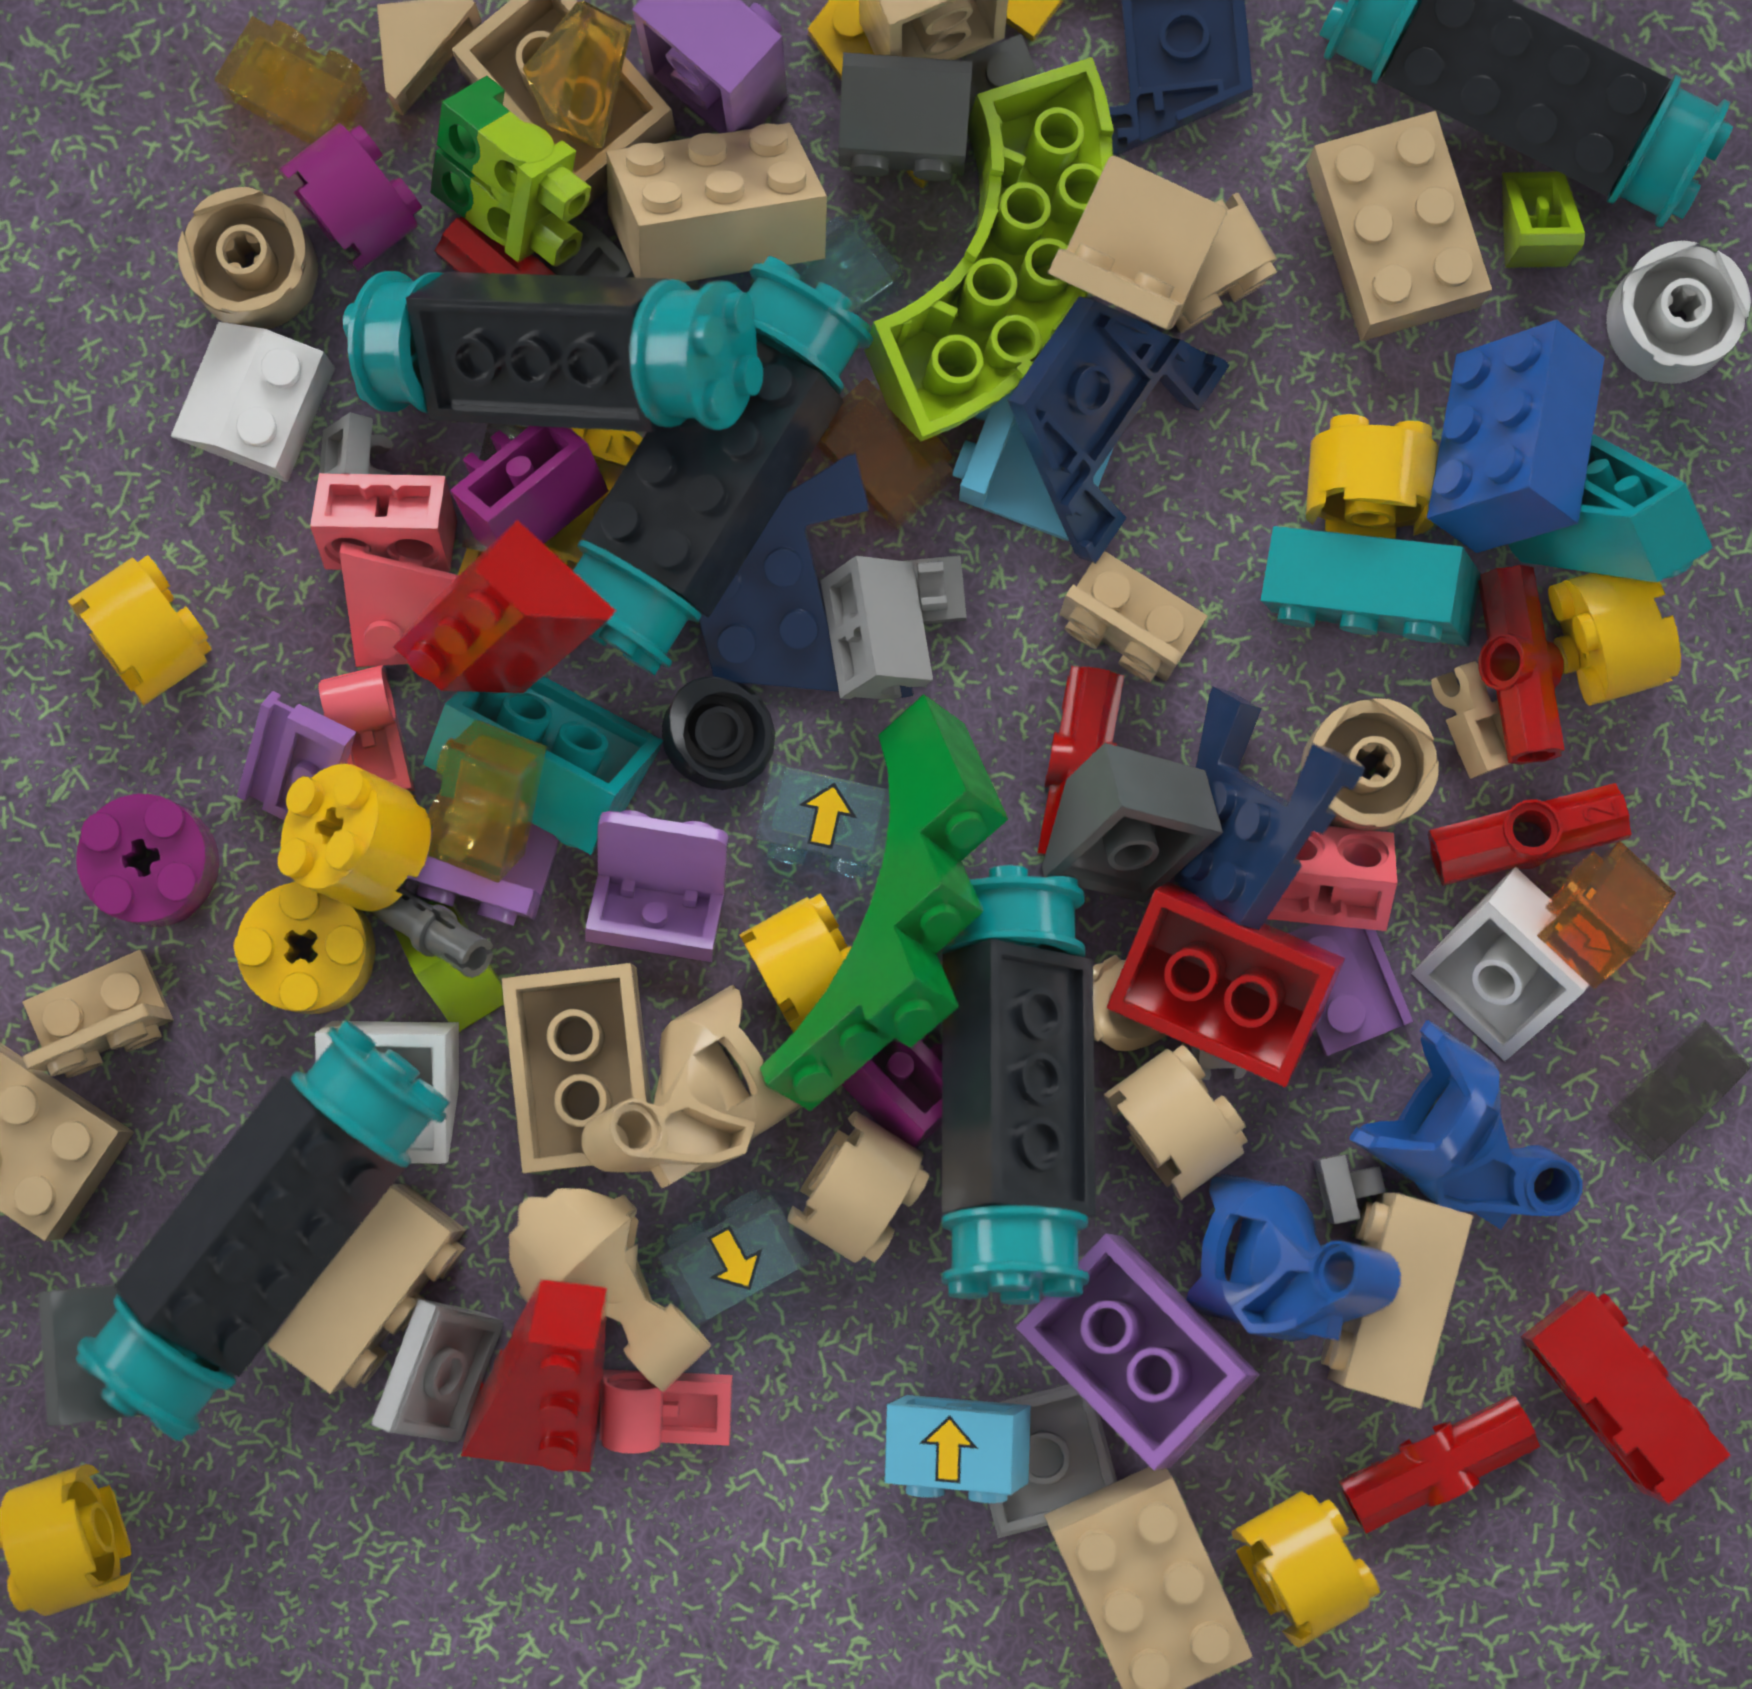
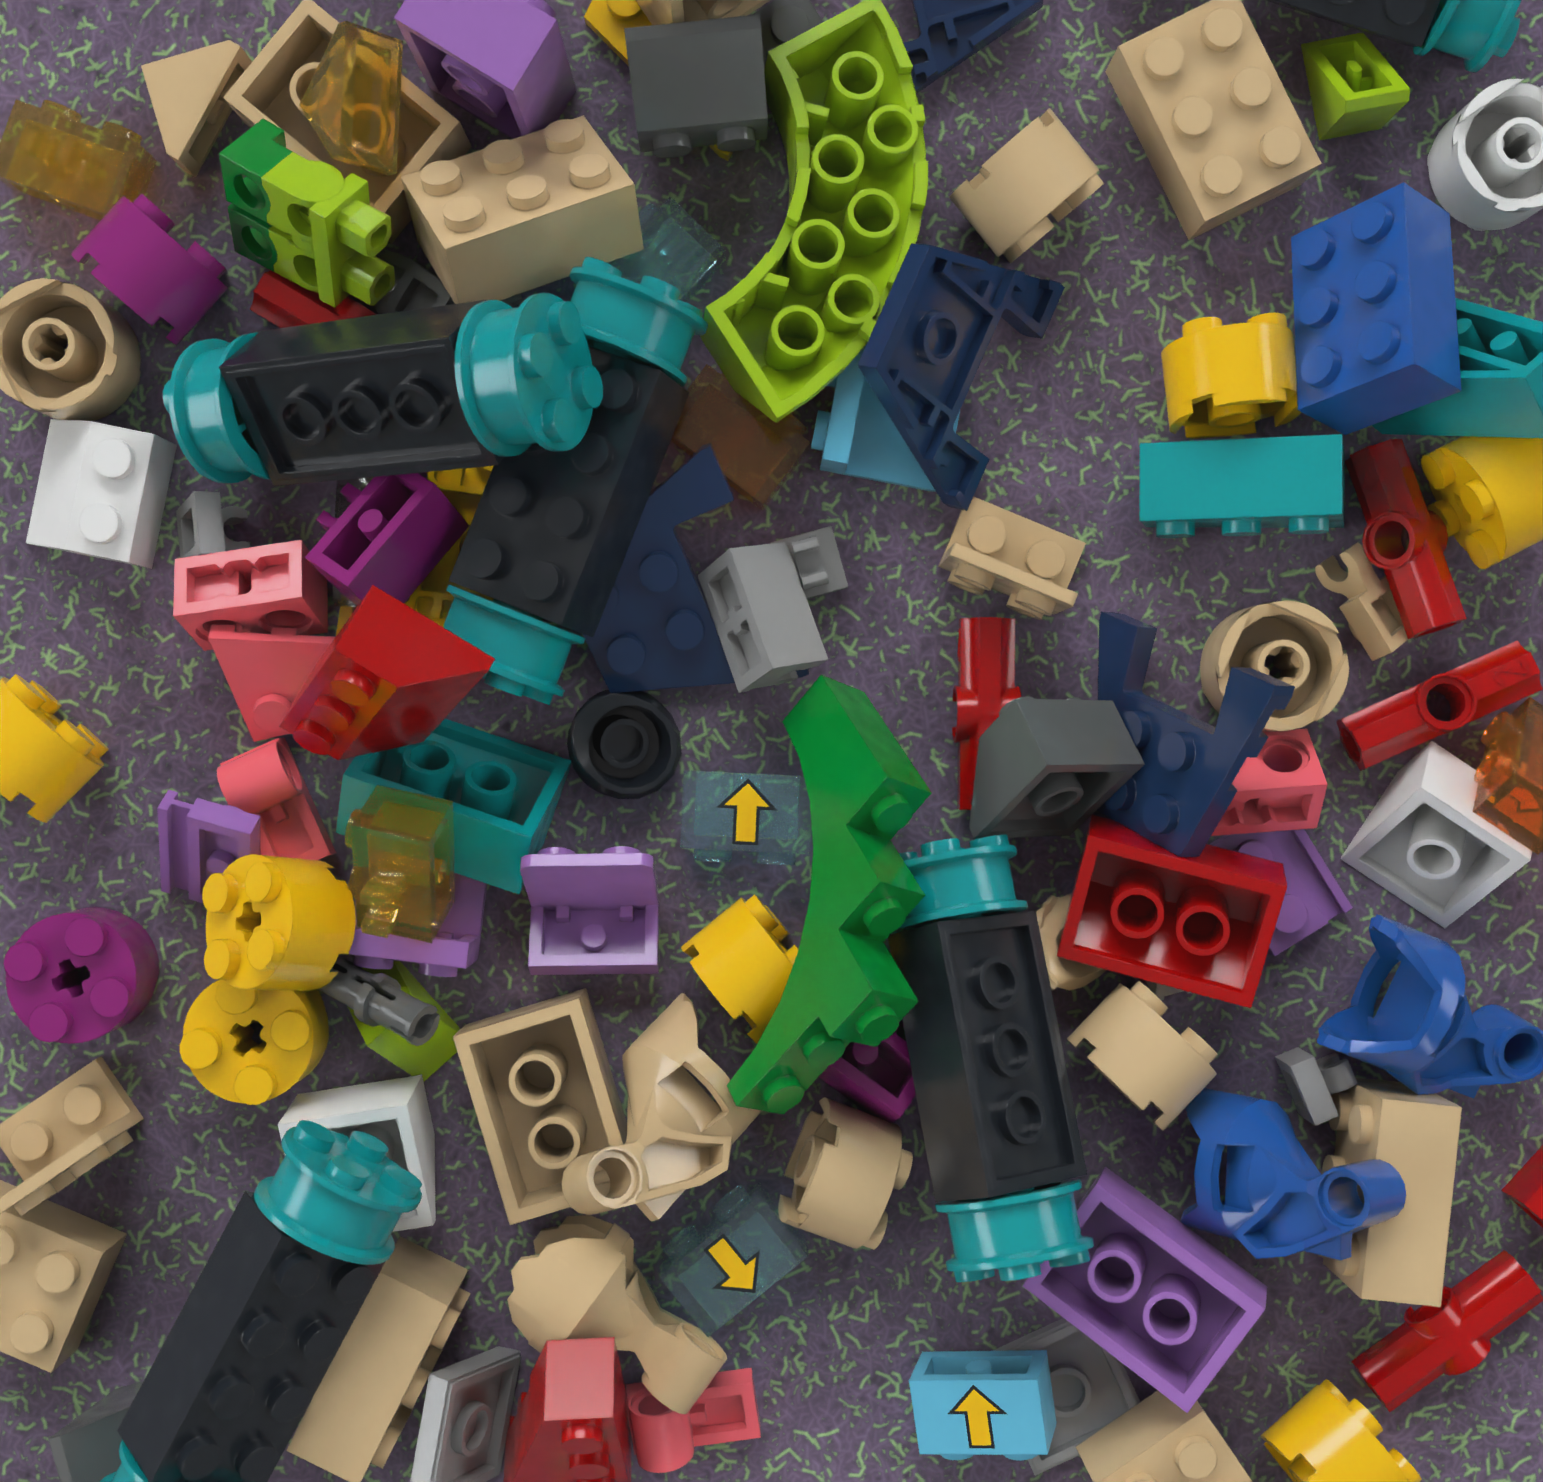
camera: 10 degrees left, 5 degrees up
(1140, 242) = (965, 175): tan bracket -> none

